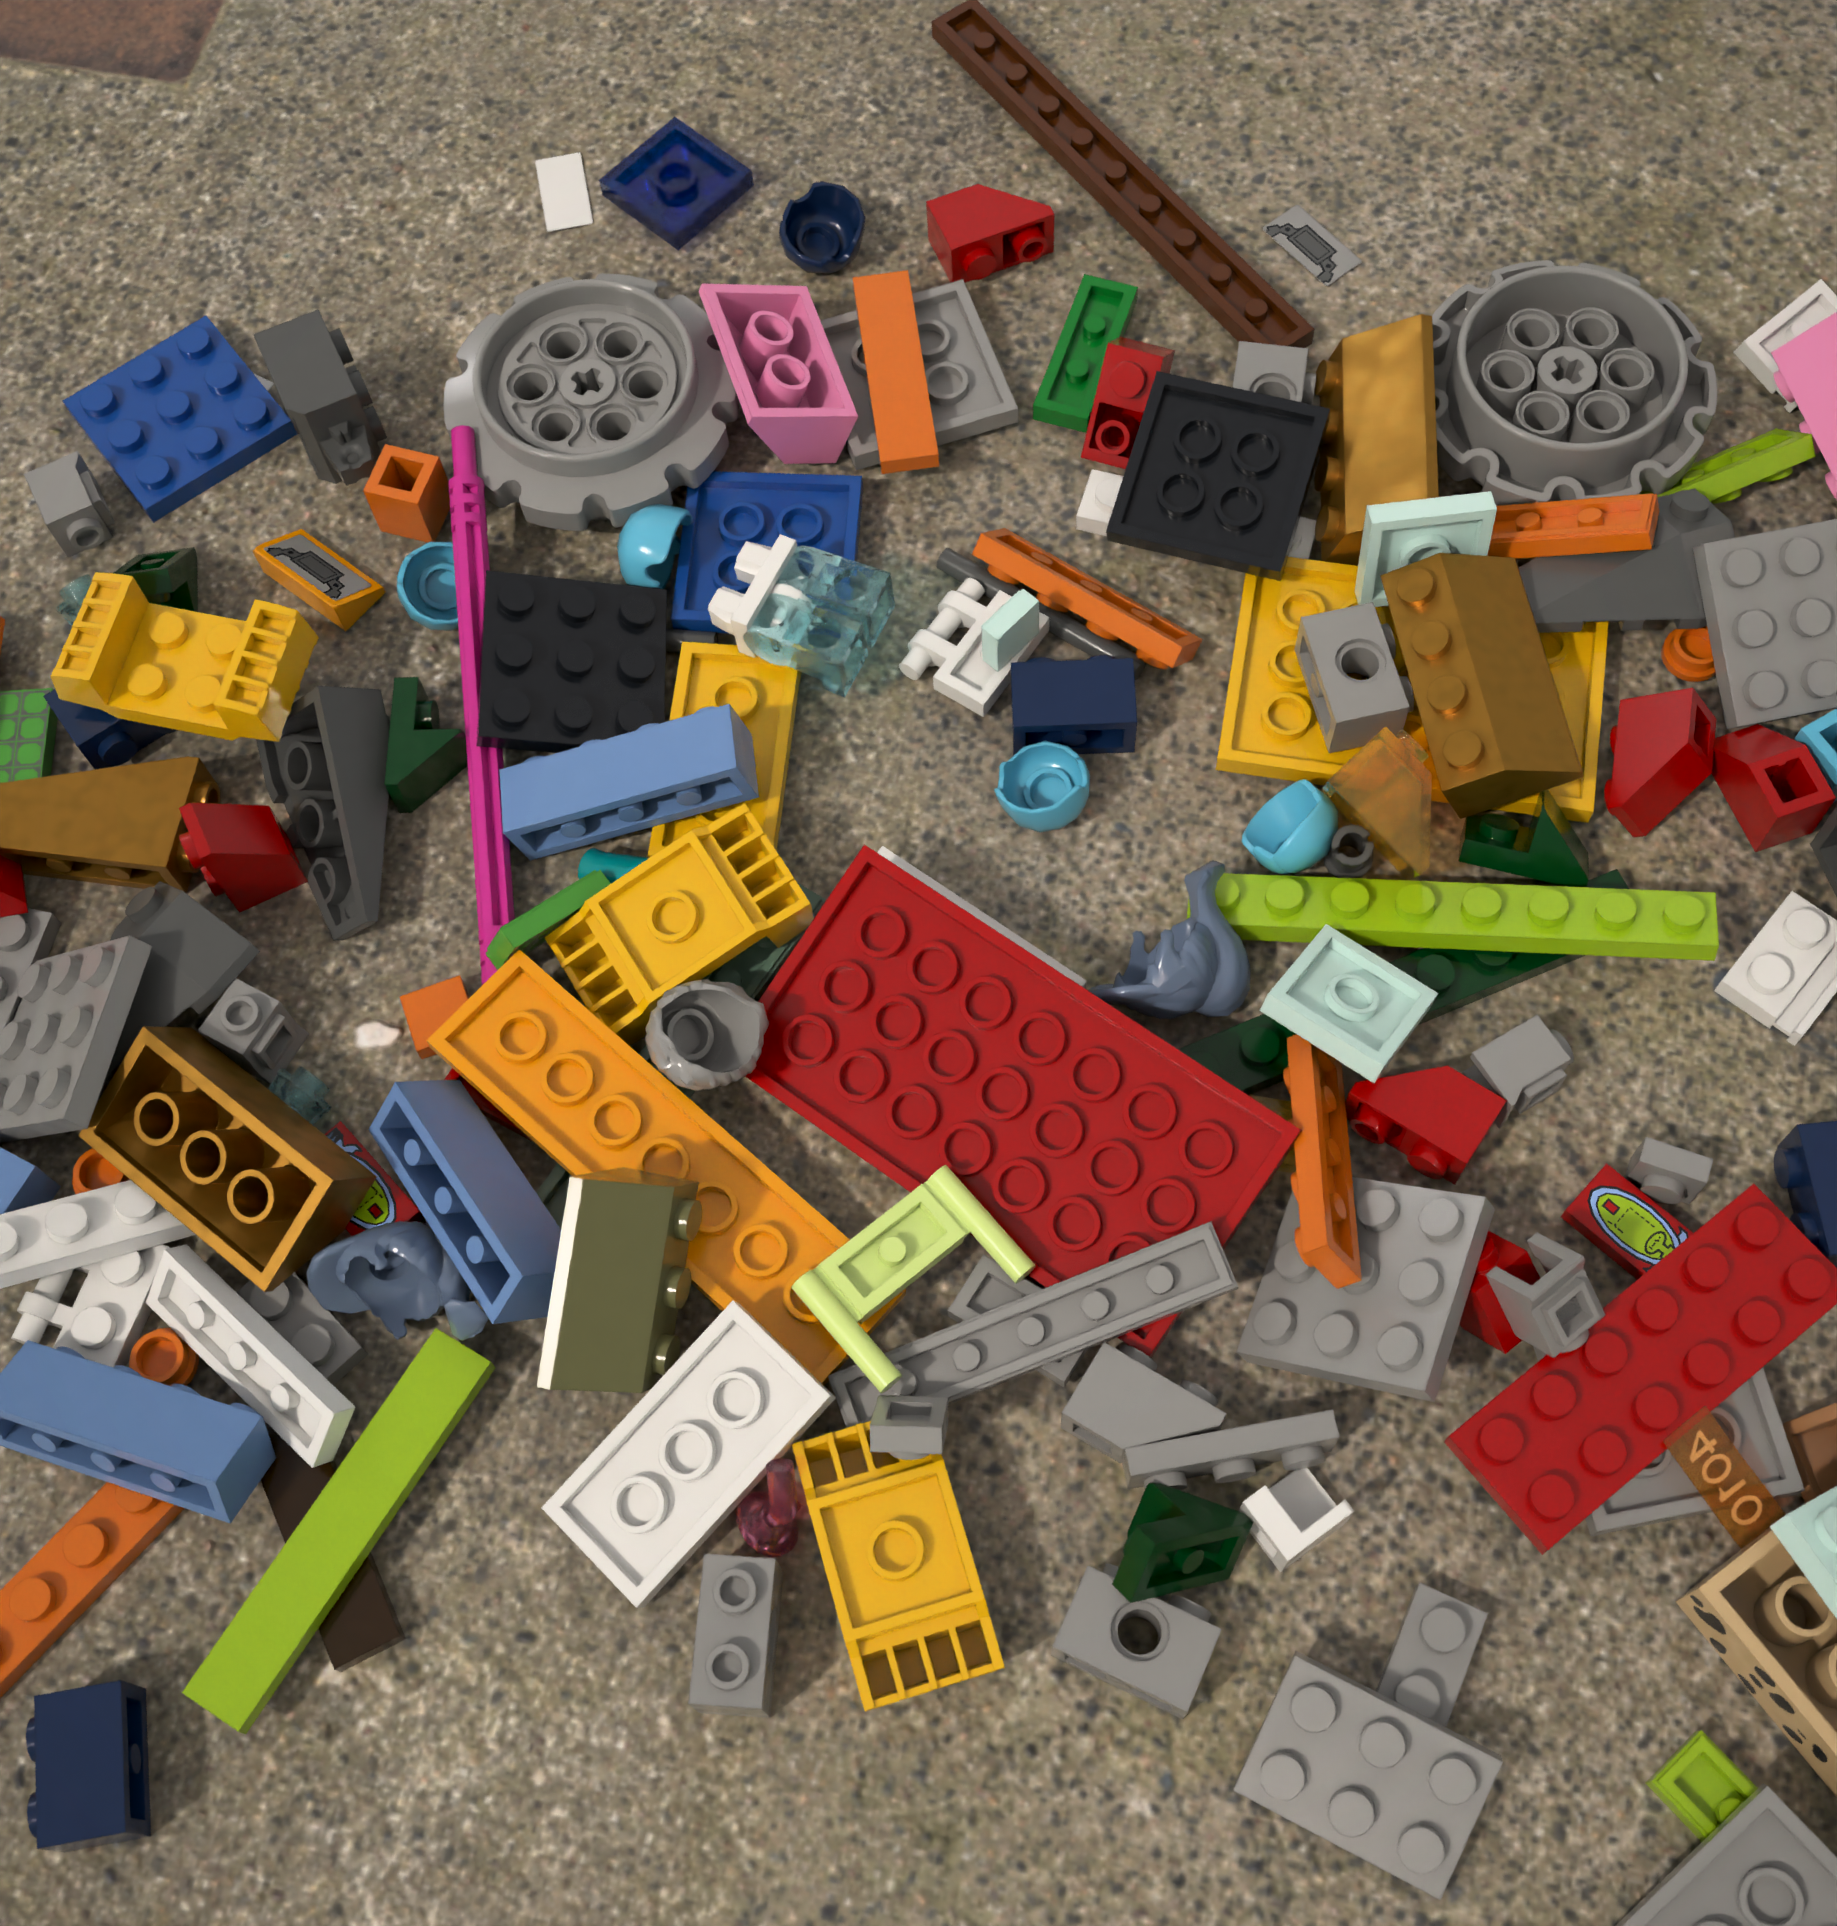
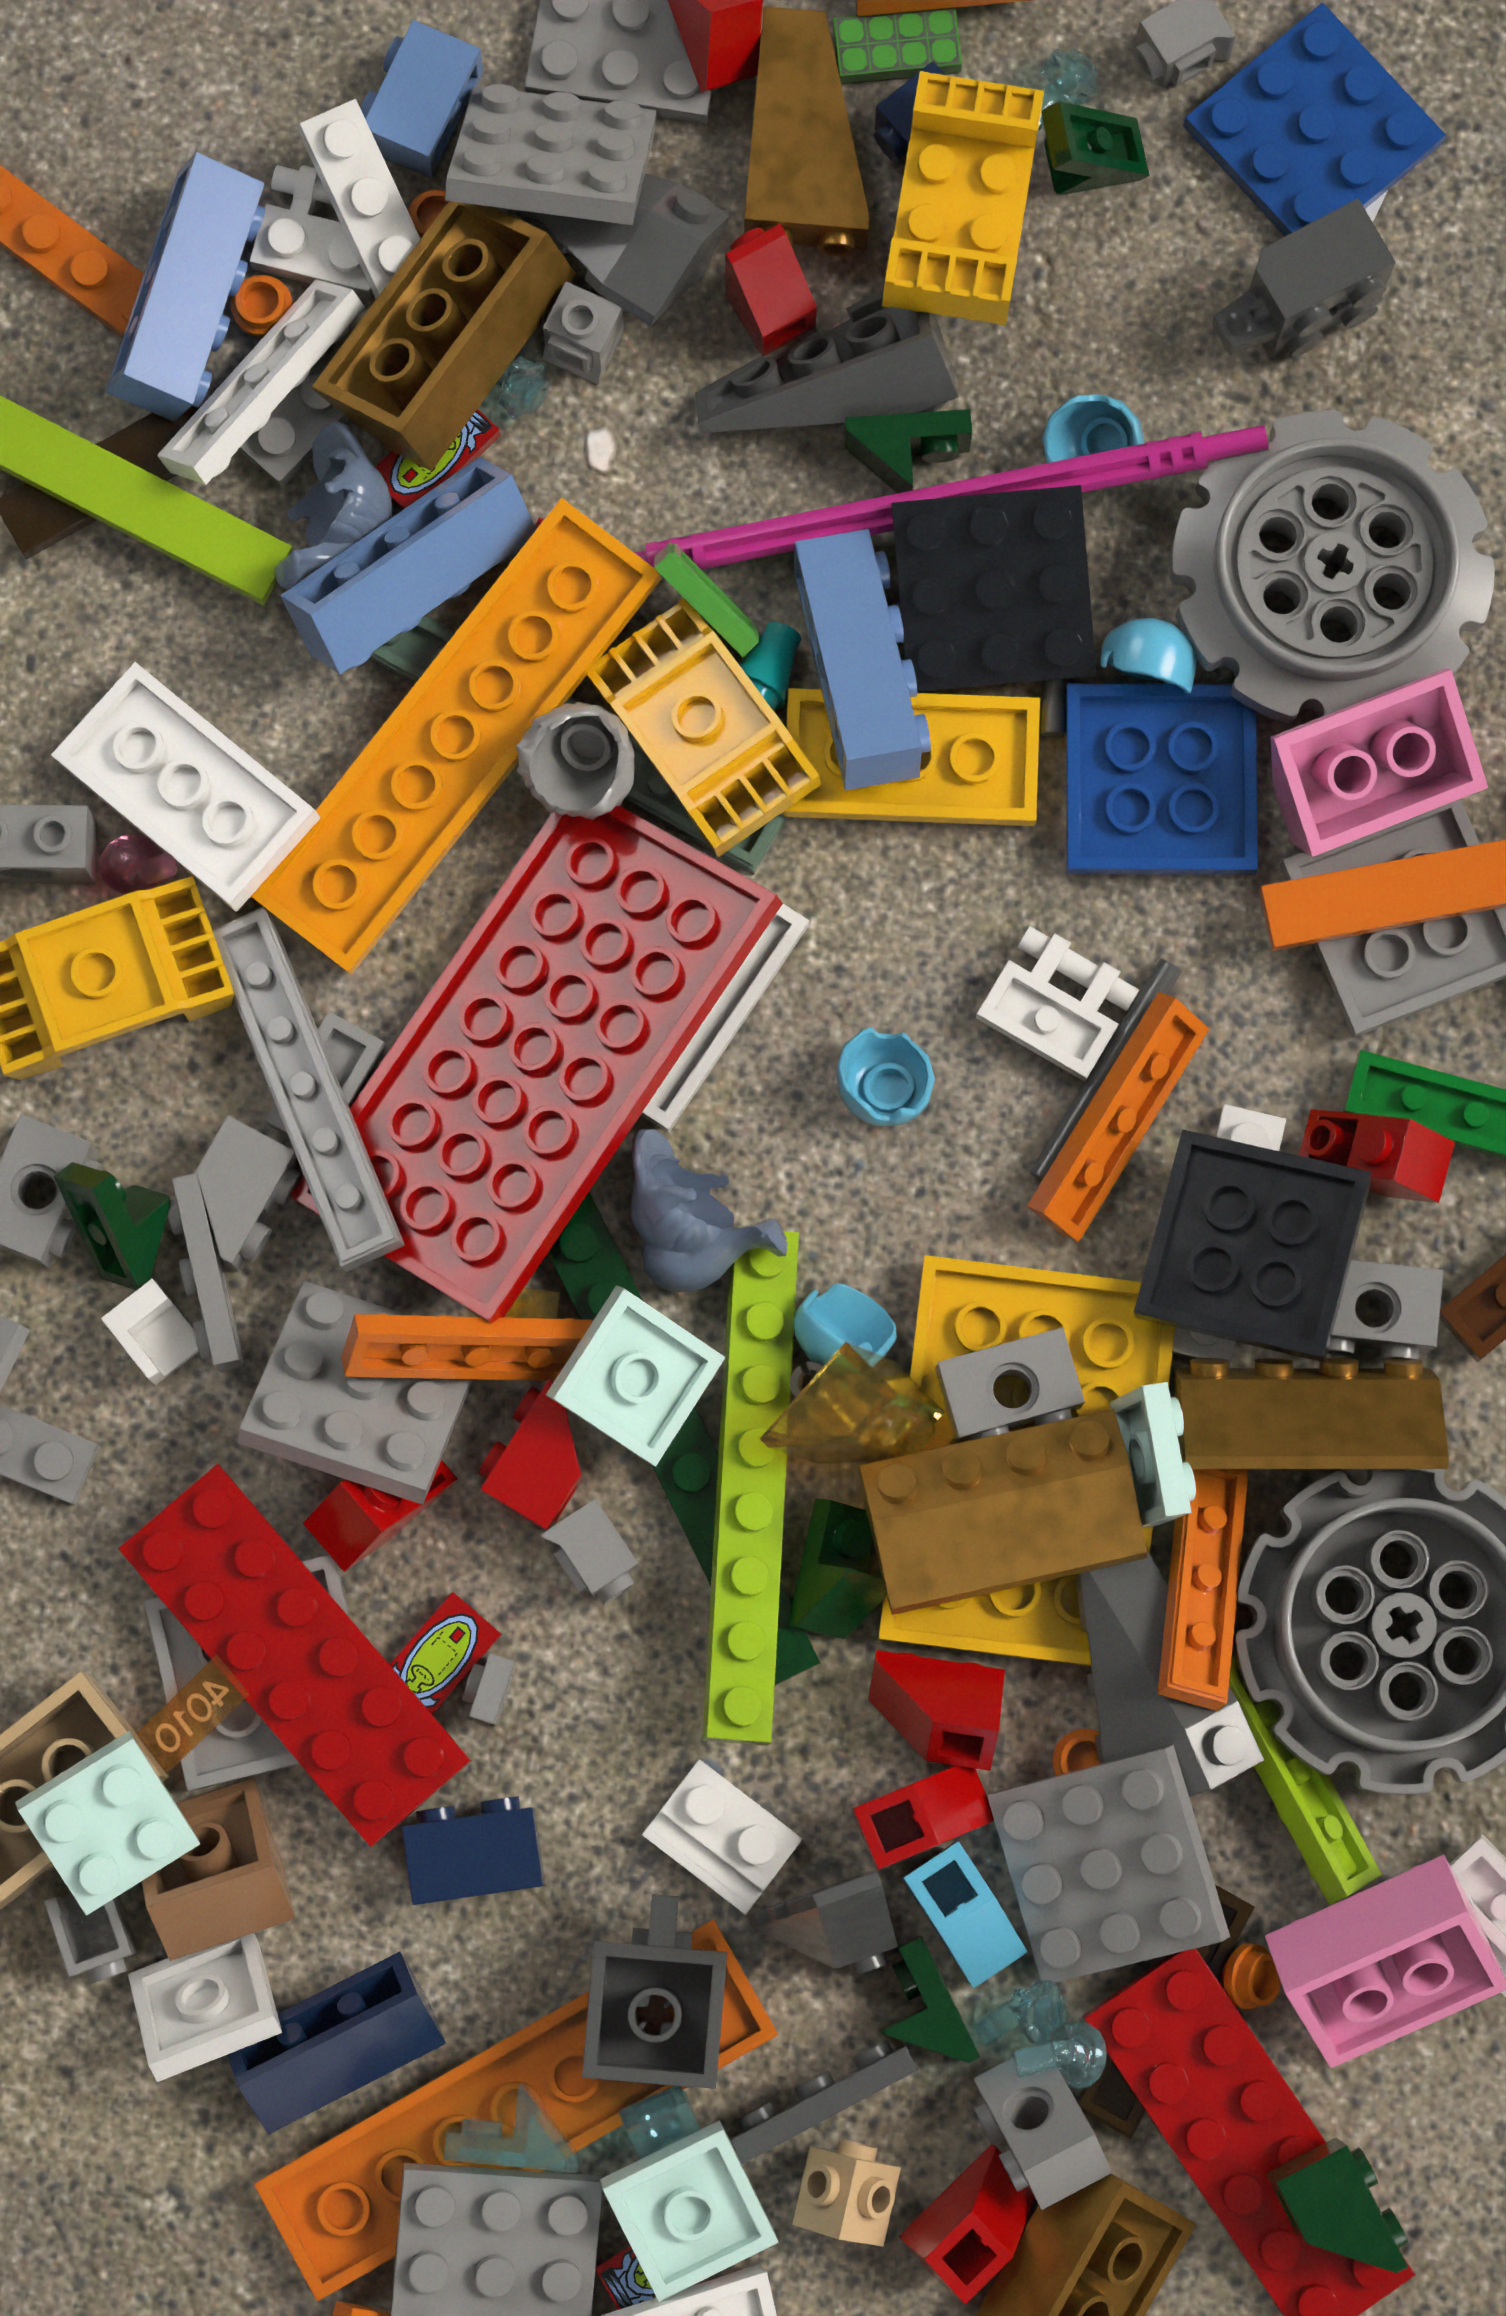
camera: 80 degrees right, 15 degrees up
(319, 577) = (1114, 312): slope -> none
(408, 493) = (1203, 391): orange brick -> none
(430, 1008) = (616, 504): orange tile -> none
(619, 1281) = (327, 705): olive slope -> none
(805, 610) = (1071, 796): clear light blue hips -> none
(894, 1255) = (369, 954): yellowish green plate -> none
(909, 1426) = (202, 975): light grey plate -> none
(1010, 629) = (1051, 1031): light aqua tile -> none
(1075, 704) = (984, 1106): dark blue brick -> none
(1556, 1308) = (326, 1559): light grey window -> none

